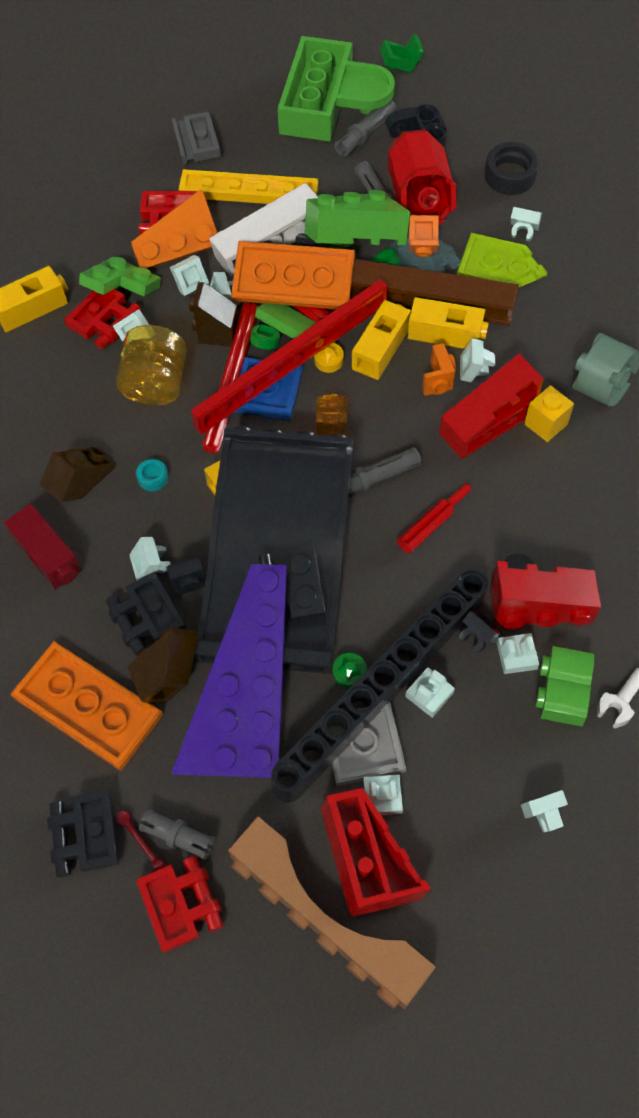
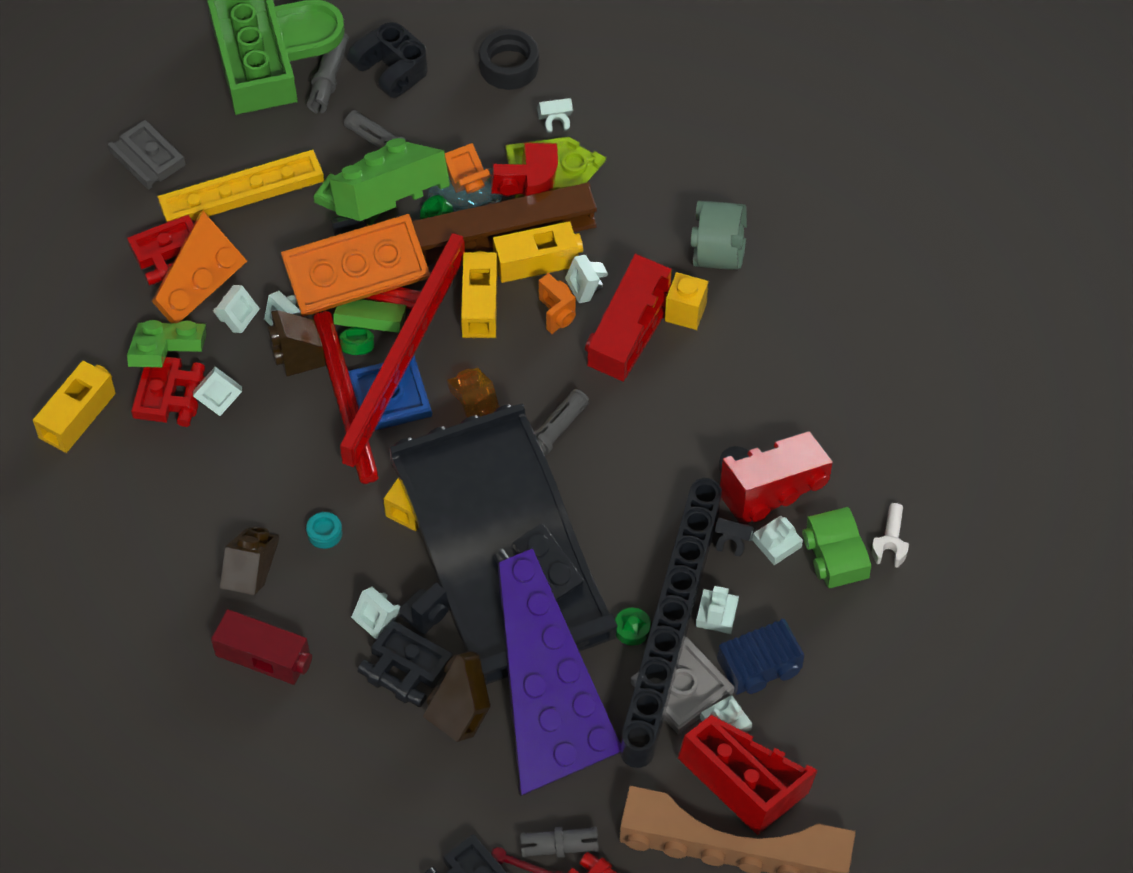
camera: 30 degrees left, 5 degrees down
(87, 705) = (398, 774): orange tile -> none
(151, 365) = (264, 418): clear yellow wheel -> none
(272, 224) = (297, 222): white brick -> none
(330, 358) = (437, 336): yellow tile -> none
(421, 175) = (425, 104): red brick -> none
(430, 521) = (629, 453): red axle -> none
(443, 754) = (761, 657): none -> dark blue brick
(475, 262) = (532, 176): none -> red brick
(546, 810) = (877, 663): light aqua tile -> none

